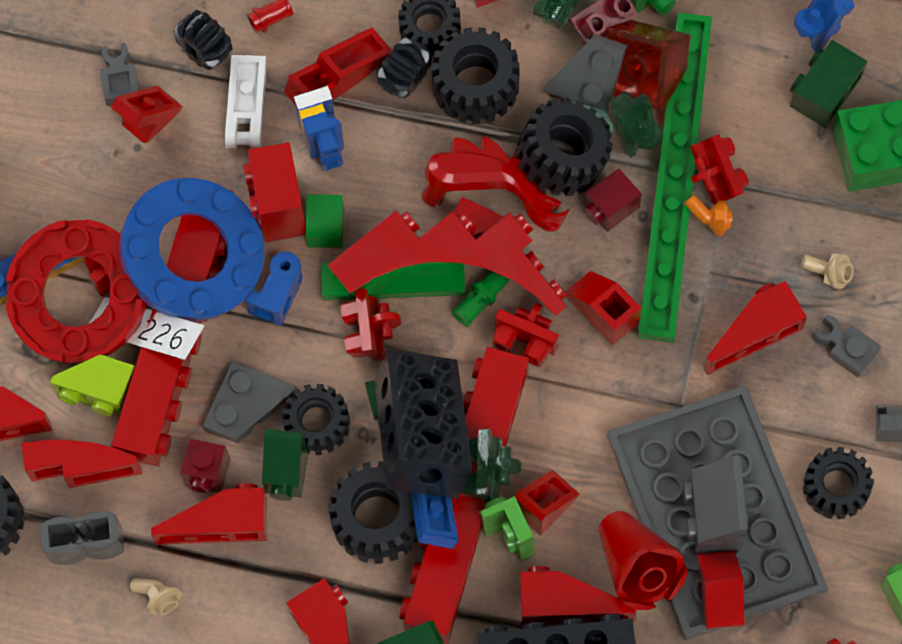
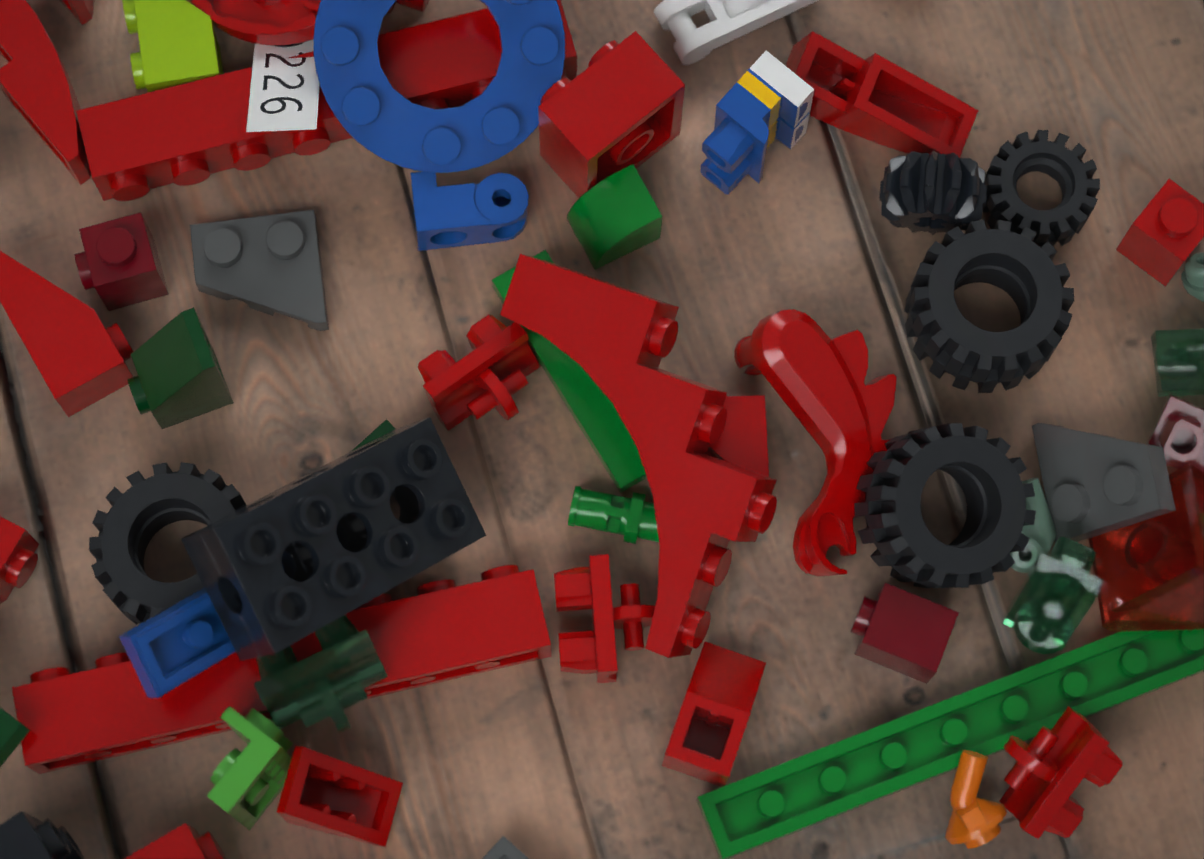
camera: 55 degrees right, 5 degrees up
(324, 399) = (275, 346): black tyre -> none

